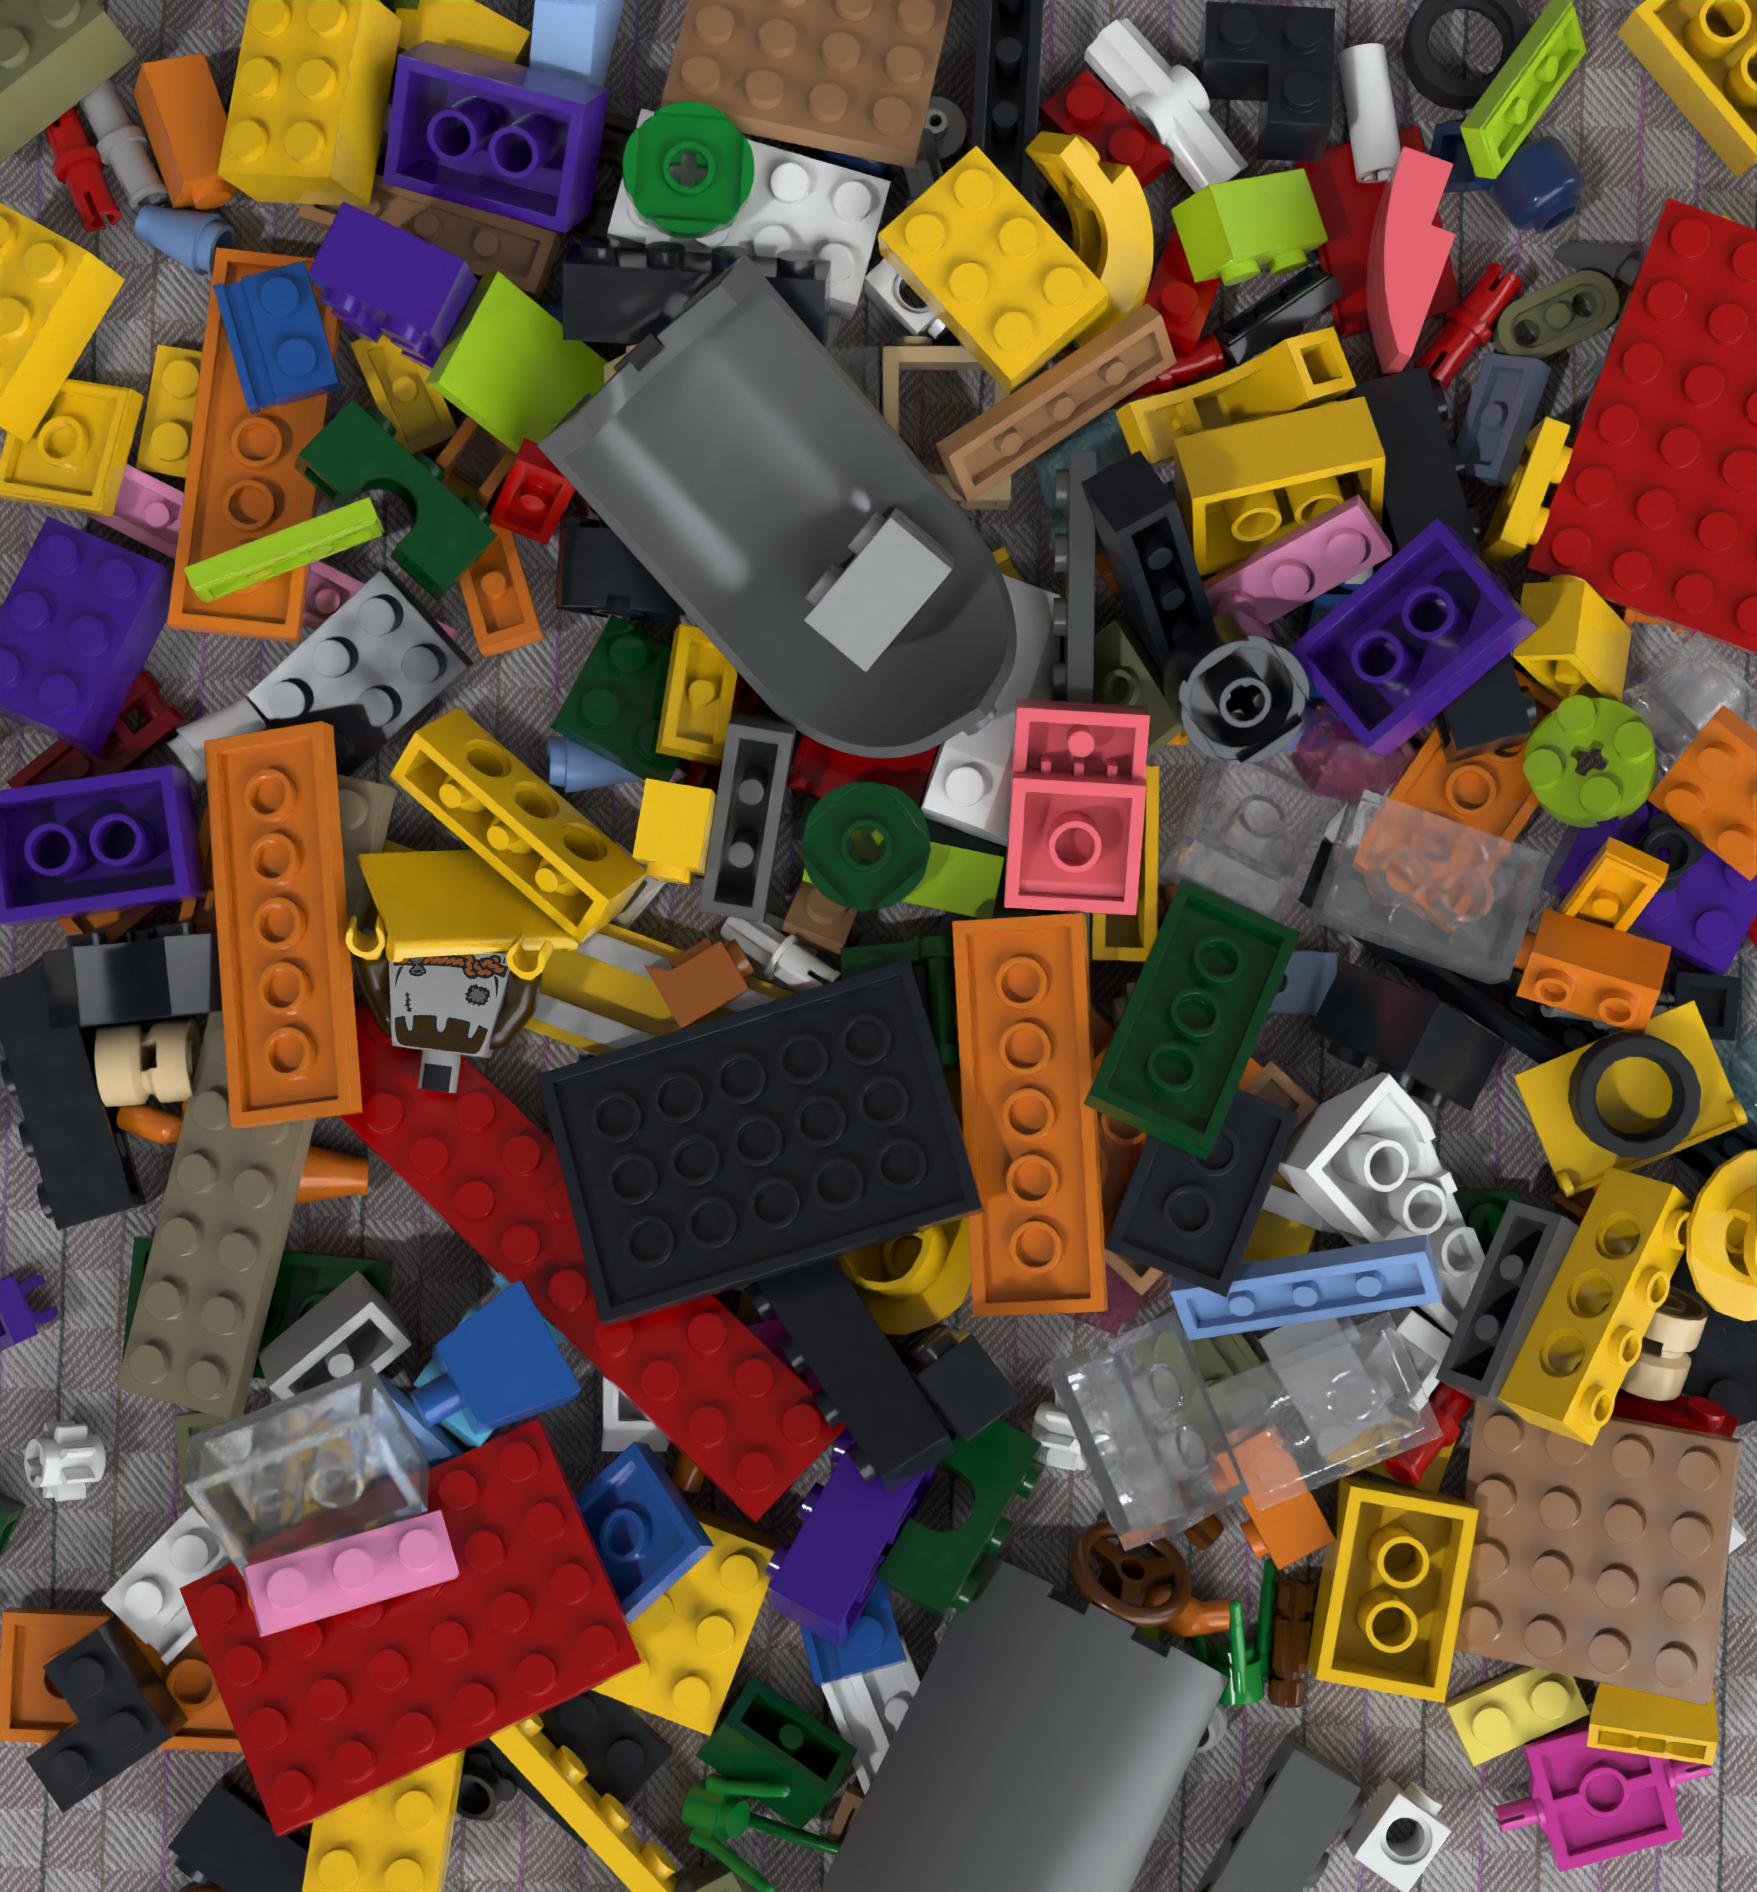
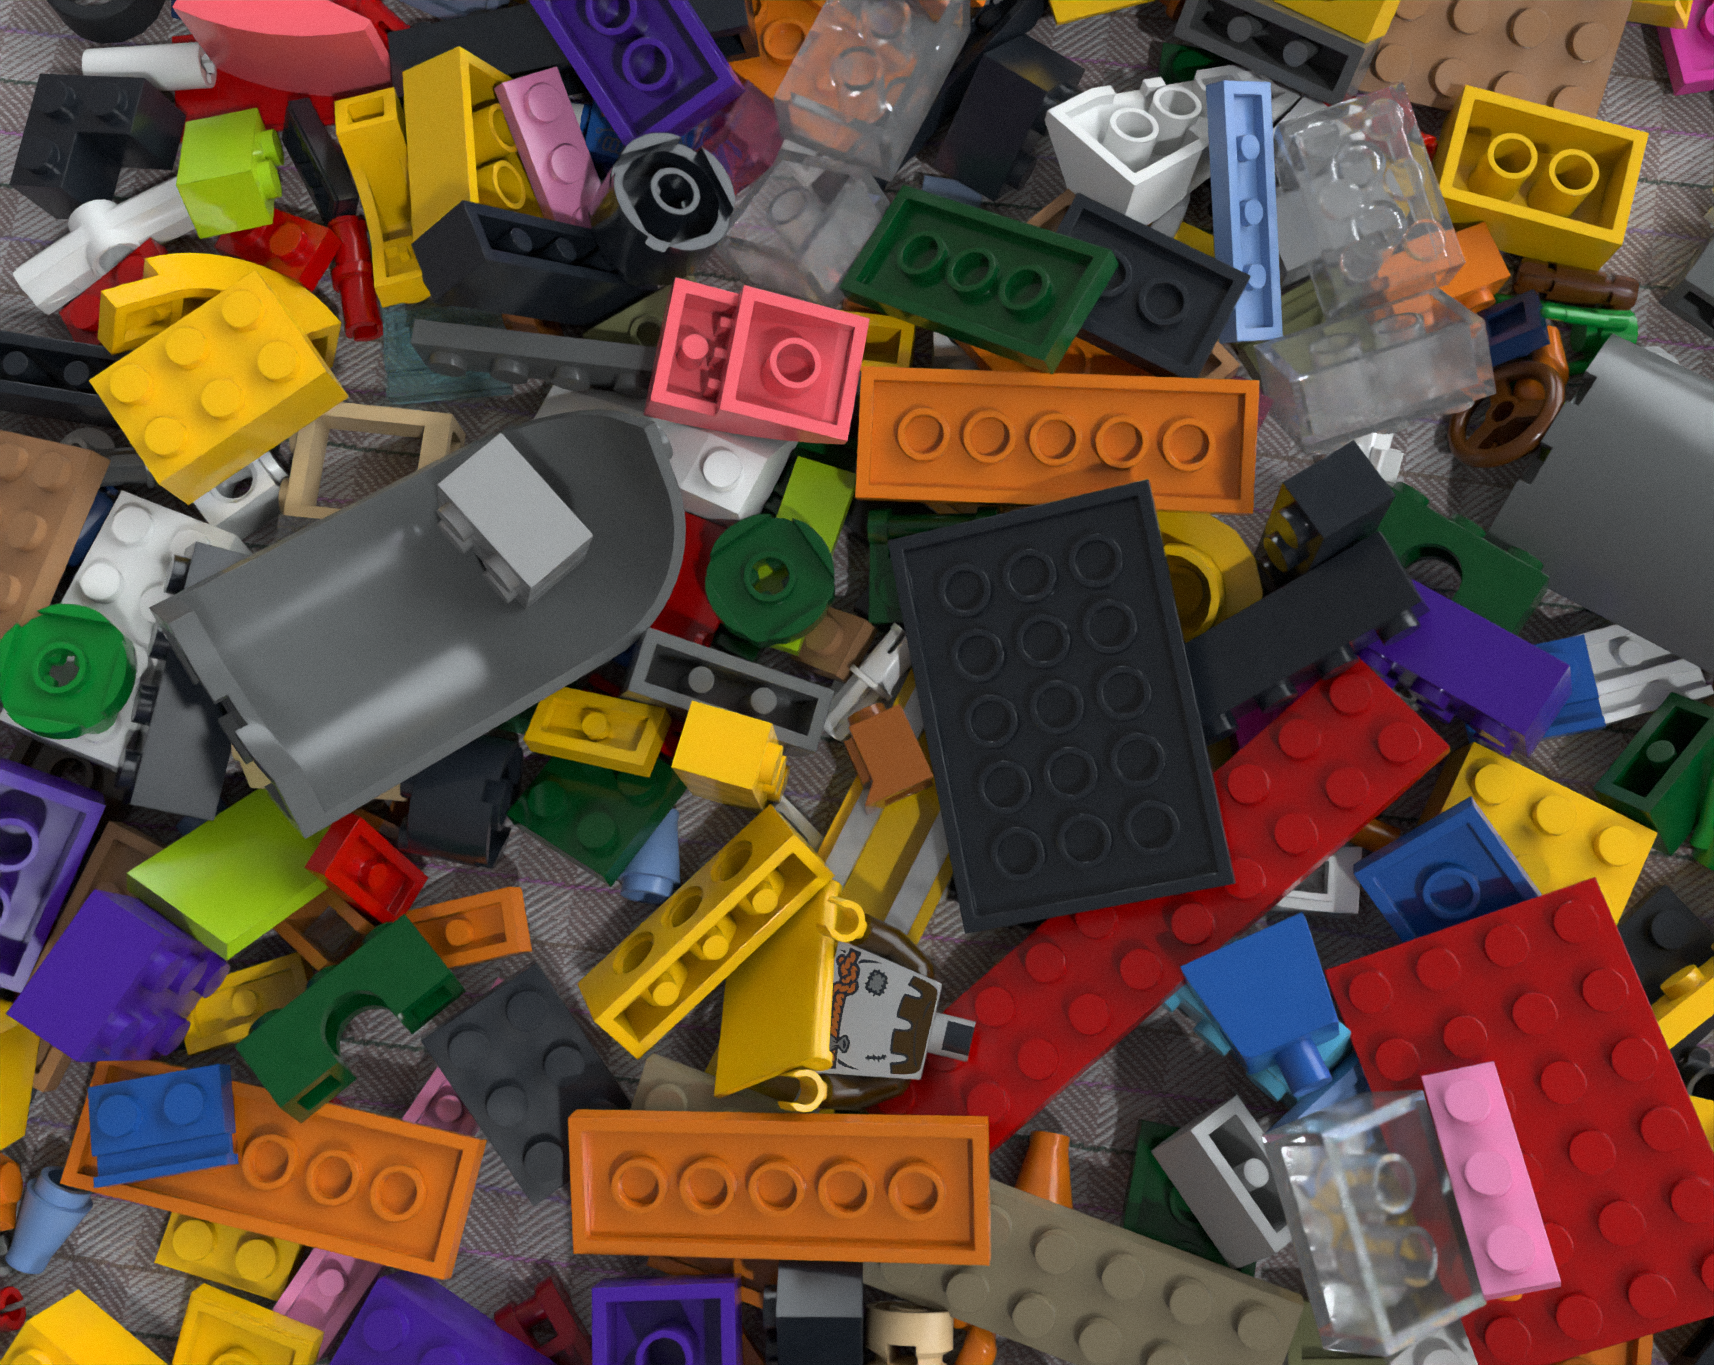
camera: 80 degrees left, 10 degrees down
(230, 721) = (572, 1270): white cone -> none
(285, 550) = (382, 1138): lime tile -> none
(1057, 403) = (363, 355): medium nougat plate -> none
(1227, 1573) = (1515, 327): none -> dark blue plate
(1513, 1711) = (1647, 97): light yellow plate -> none

